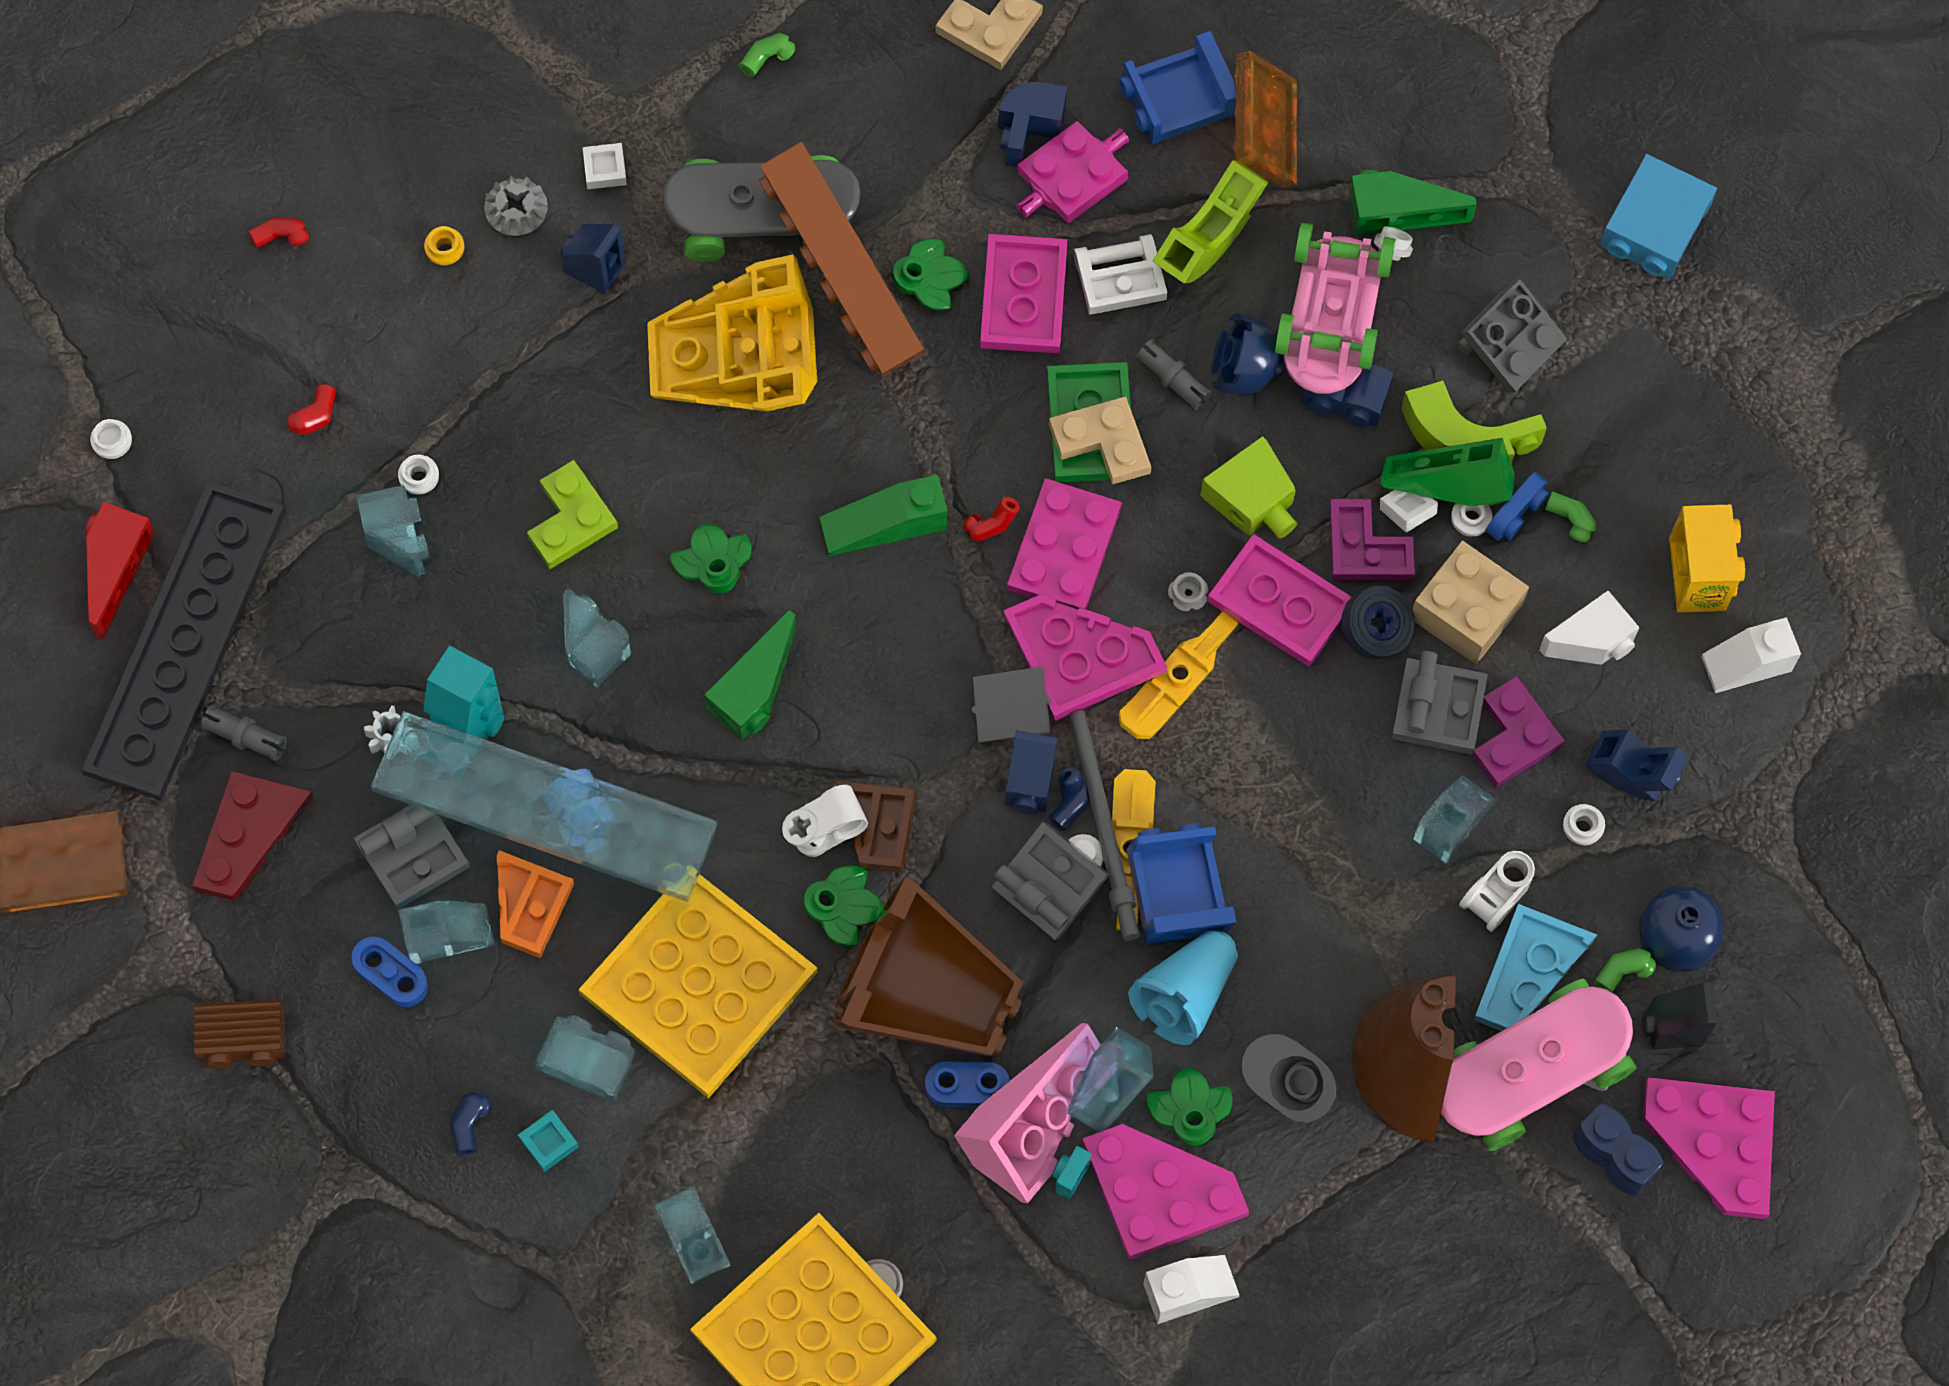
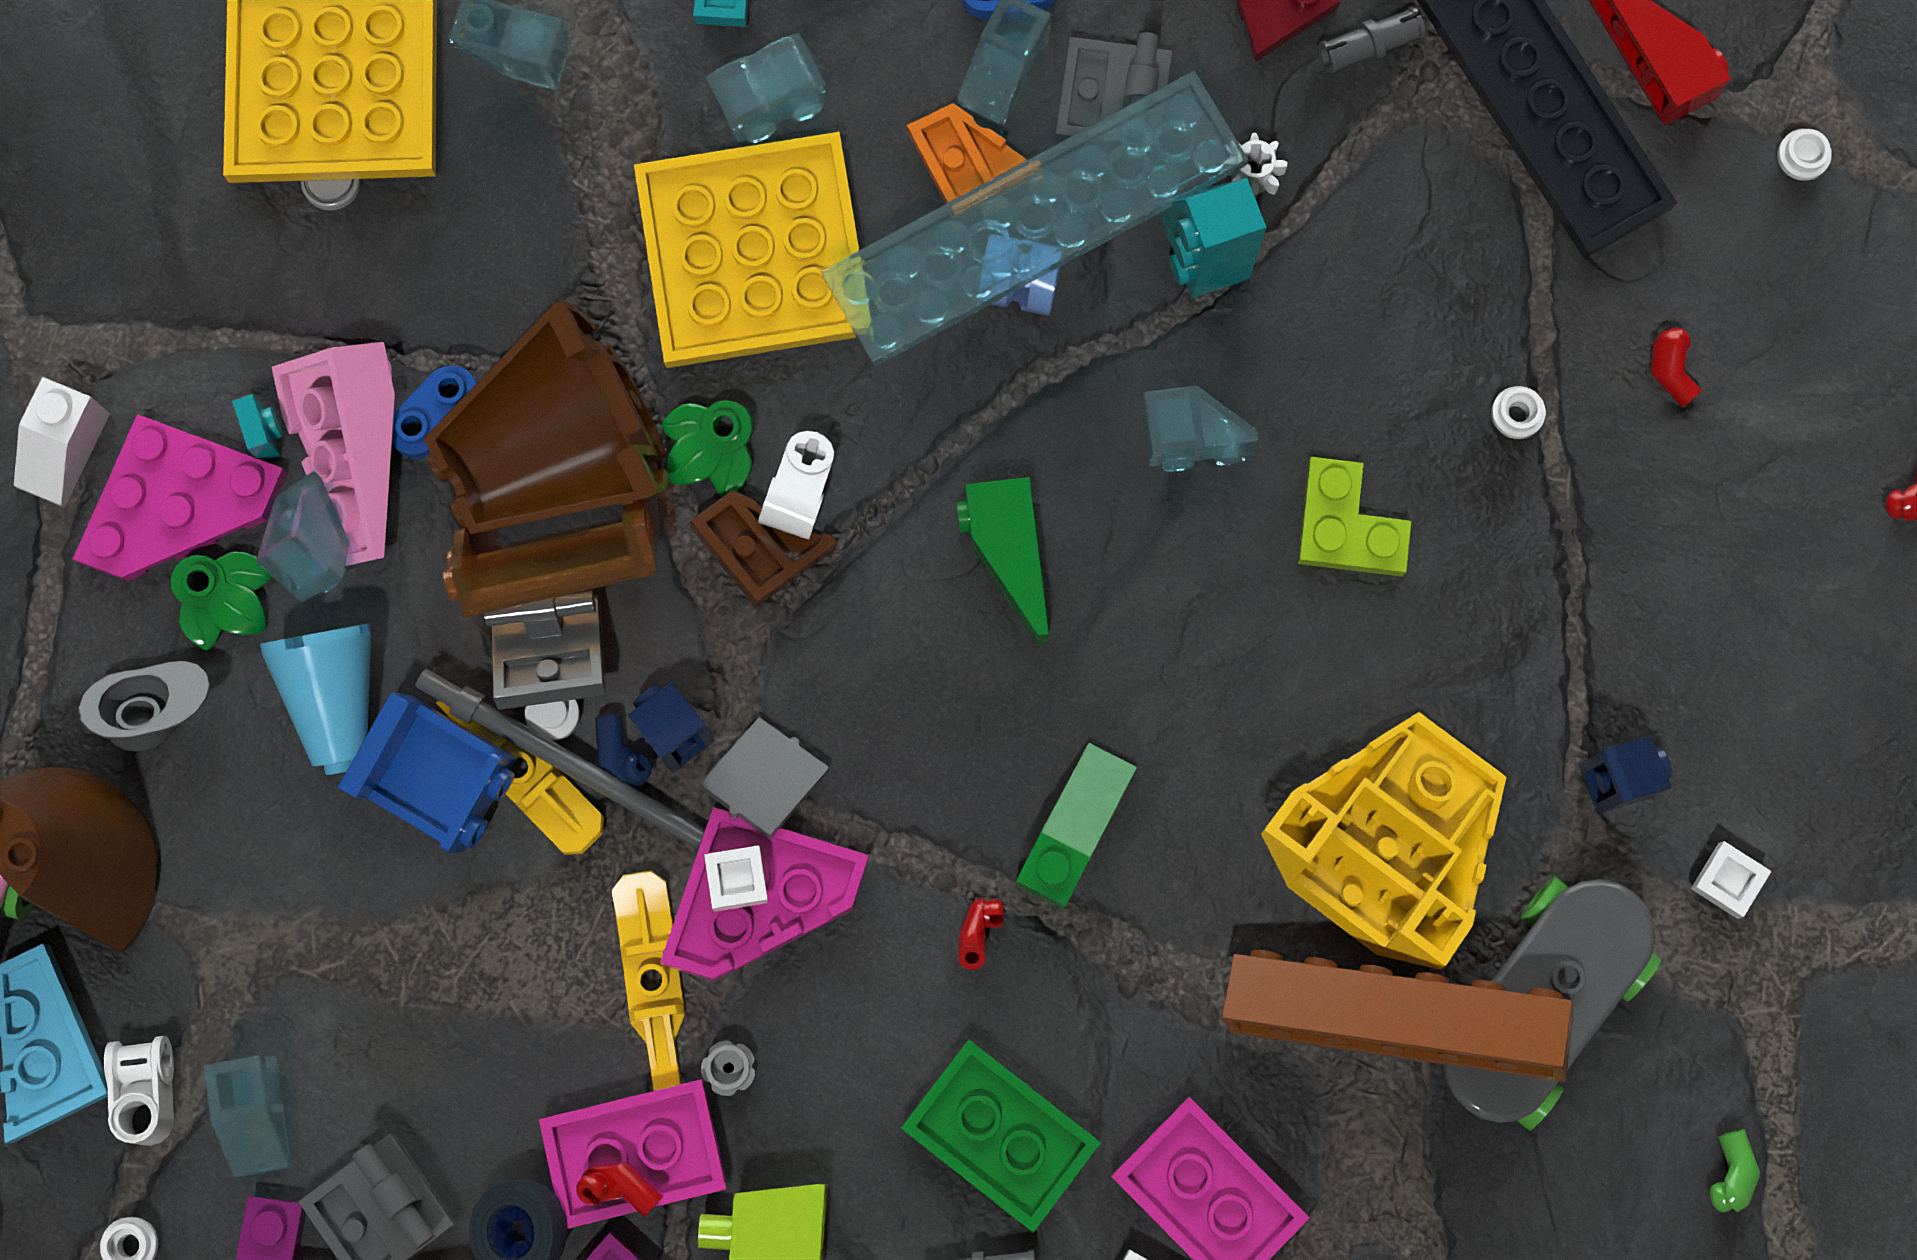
camera: 135 degrees right, 10 degrees up
(390, 529) = (1475, 336): clear light blue slope -> none
(441, 236) = (1779, 632): yellow plate -> none
(513, 221) = (1742, 770): light grey gear -> none
(712, 553) = (1189, 623): green plate -> none
(934, 274) = (1313, 1125): green plate -> none
(1000, 914) = (551, 565): none -> clear orange panel
(1064, 544) = (890, 987): dark pink plate -> none
(1083, 659) = (736, 878): none -> white plate
(1106, 428) = (969, 1139): tan plate -> none
(1303, 588) = (617, 1182): none -> red arm

